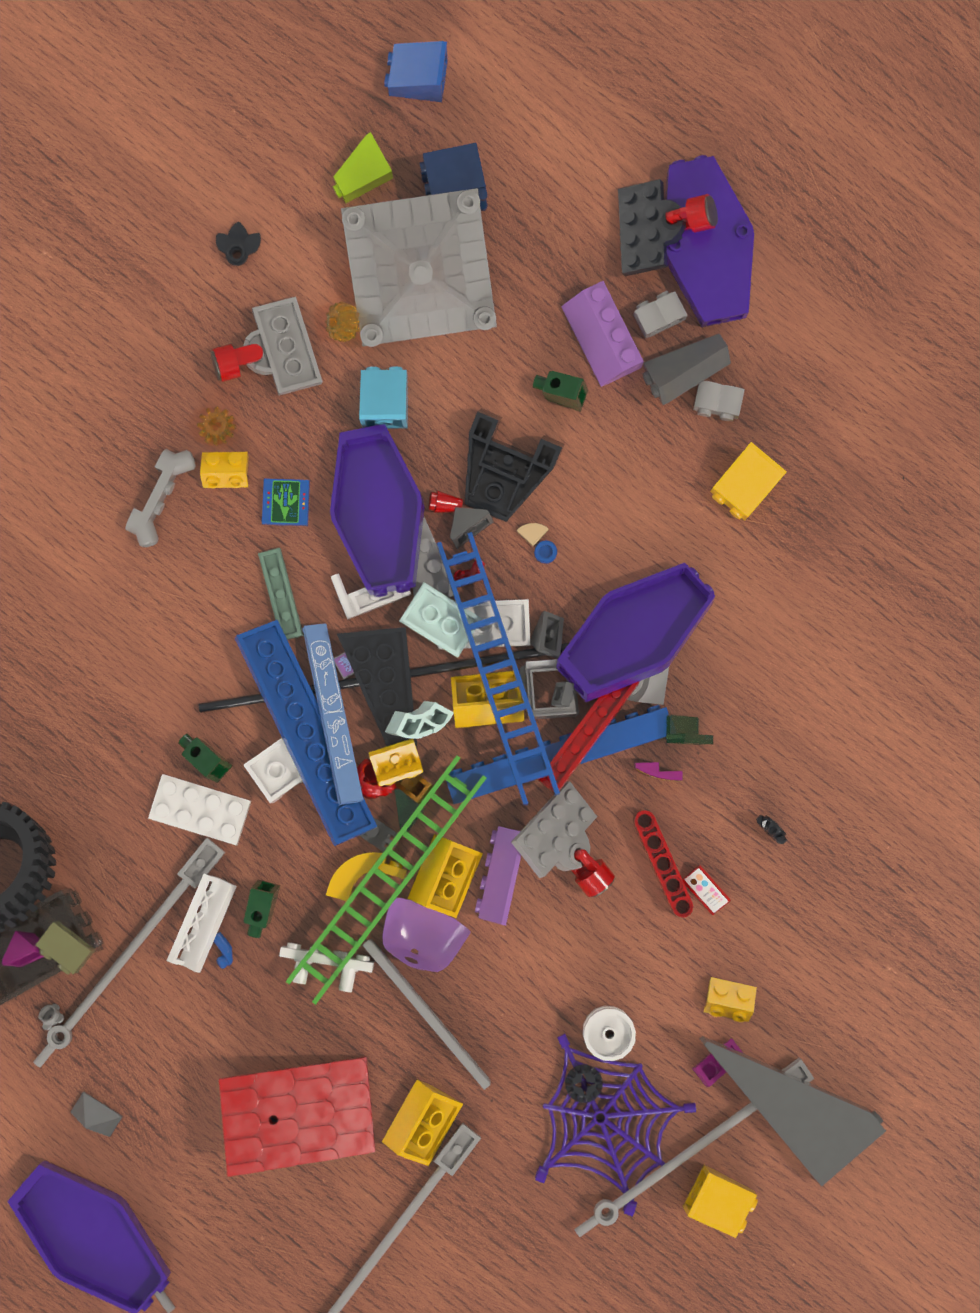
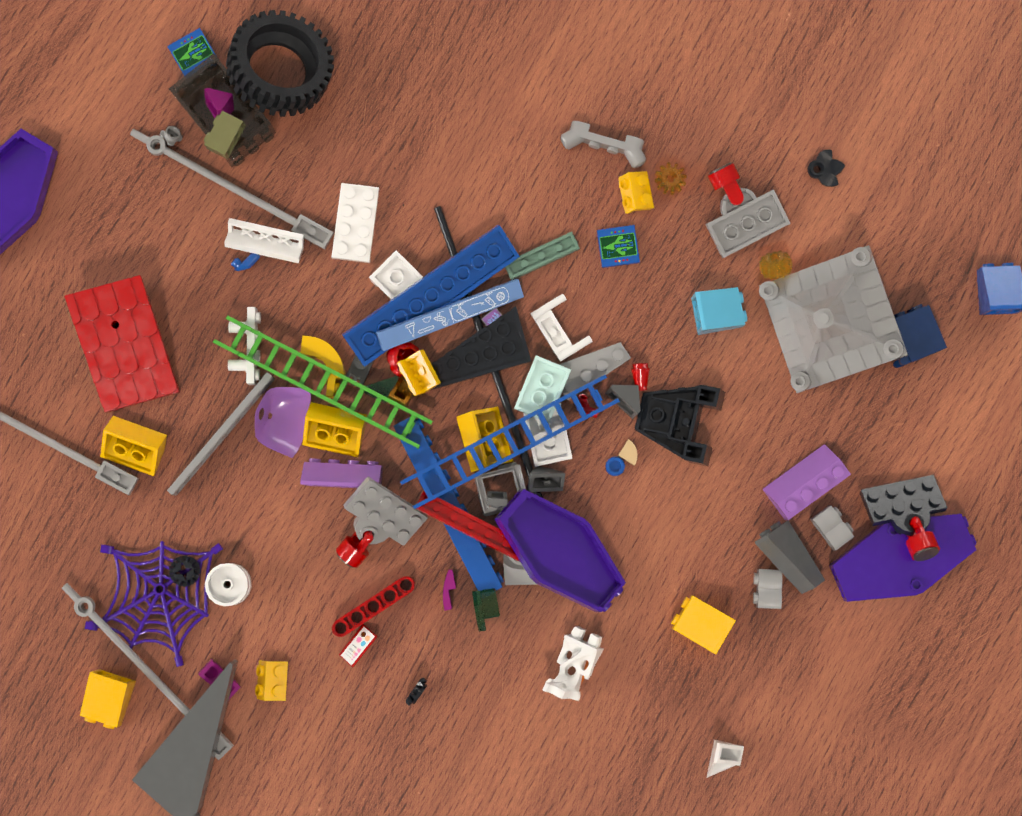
camera: 80 degrees right, 0 degrees up
(95, 1115) = (99, 185): dark grey slope -> none
(204, 758) = (396, 218): dark green torso -> none
(262, 899) = (285, 285): dark green torso -> none
(362, 171) = (906, 258): lime slope -> none
(377, 510) = (623, 321): dark purple container -> none
(421, 722) = (453, 385): light aqua brick -> none
(562, 389) = (753, 463): dark green torso -> none
(793, 651) = (583, 653): none -> white hips
(901, 486) = (724, 756): none -> white slope

